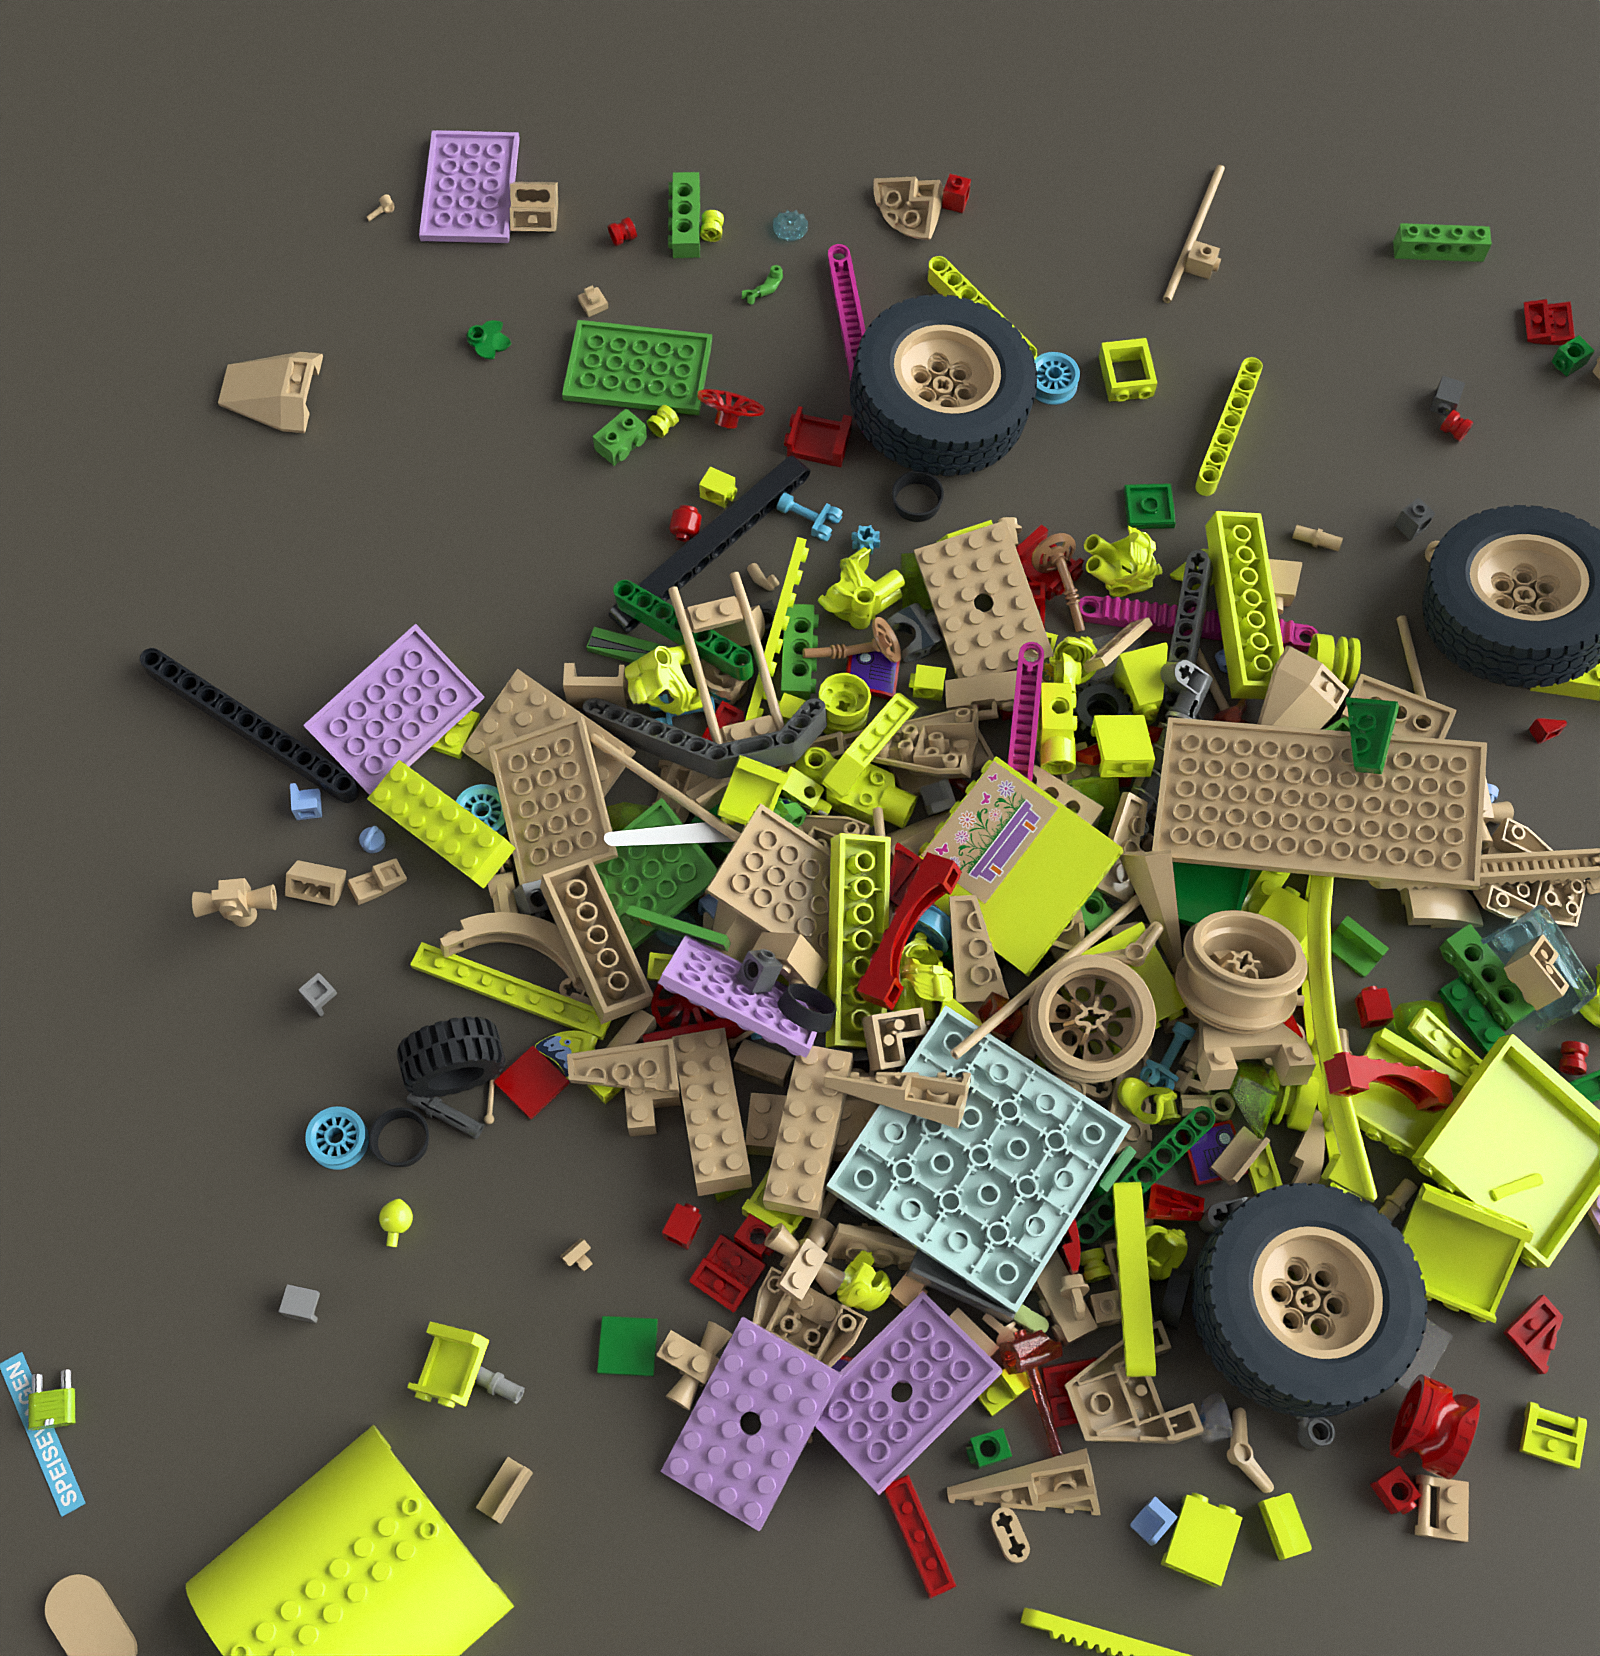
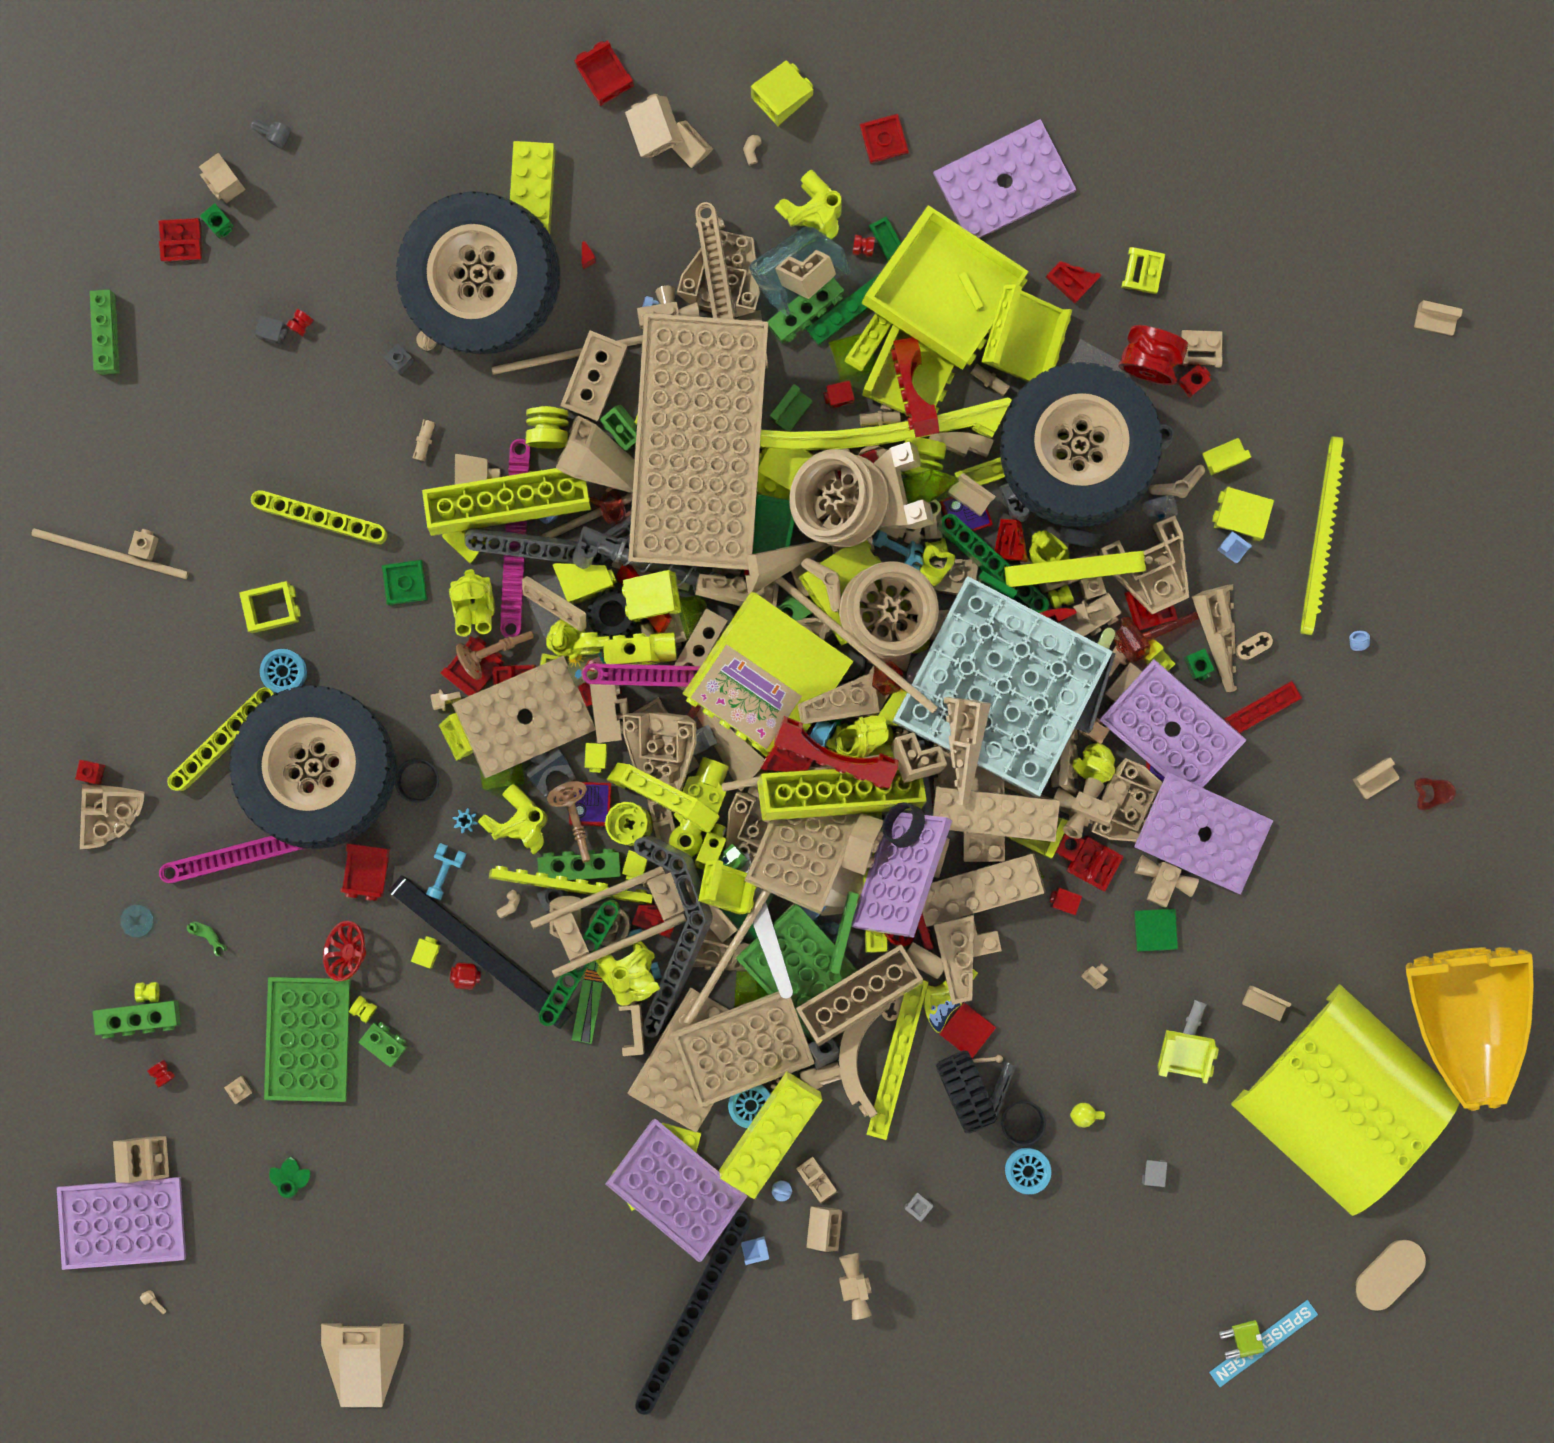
camera: 95 degrees left, 20 degrees up
(759, 971) = (881, 863): dark grey brick -> none
(1371, 732) = (641, 402): green wing -> none

